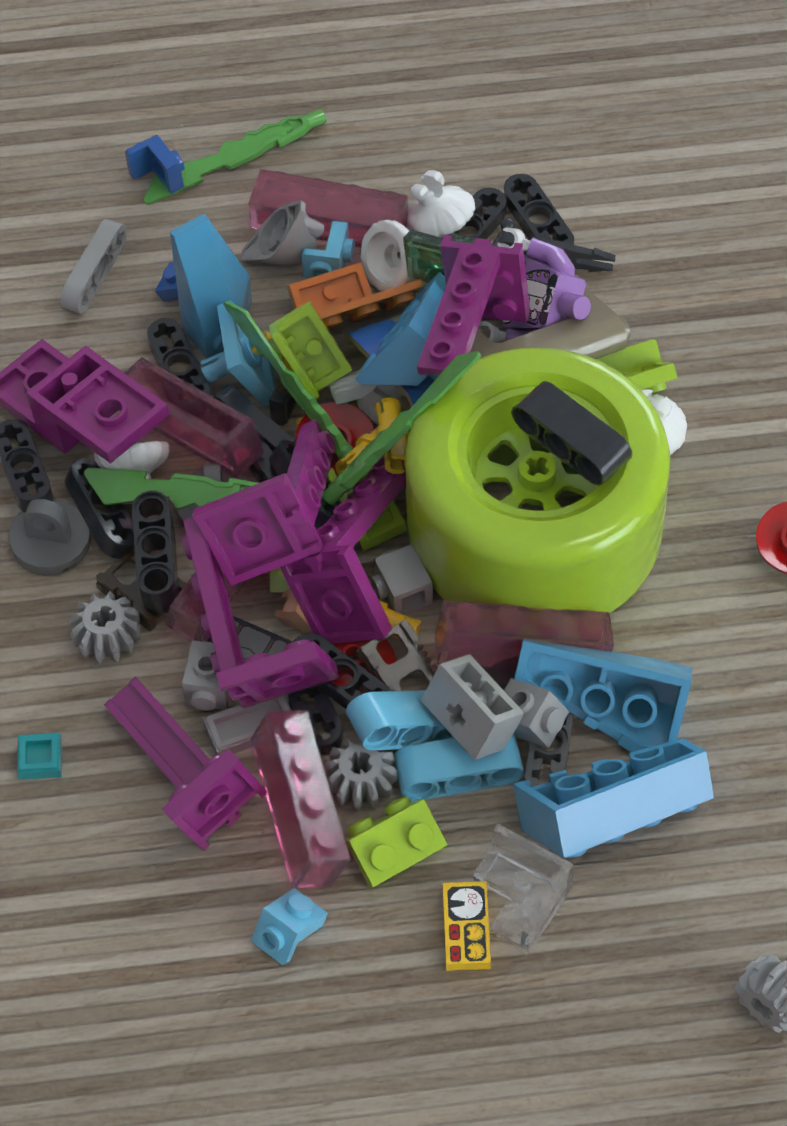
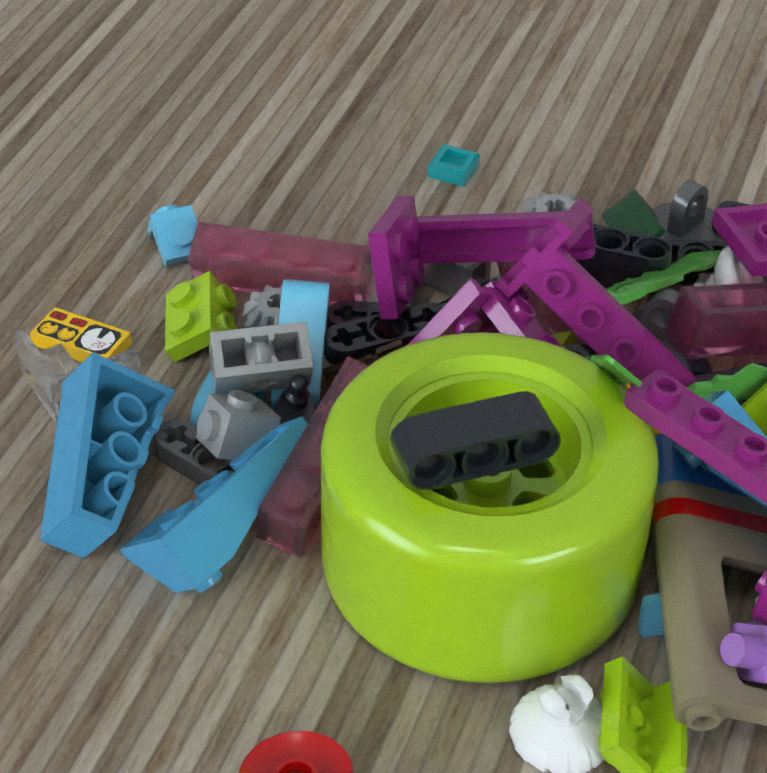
camera: 115 degrees right, 15 degrees down
(87, 558) = (633, 215): none -> dark green panel
(206, 788) = (312, 212): magenta bracket -> none

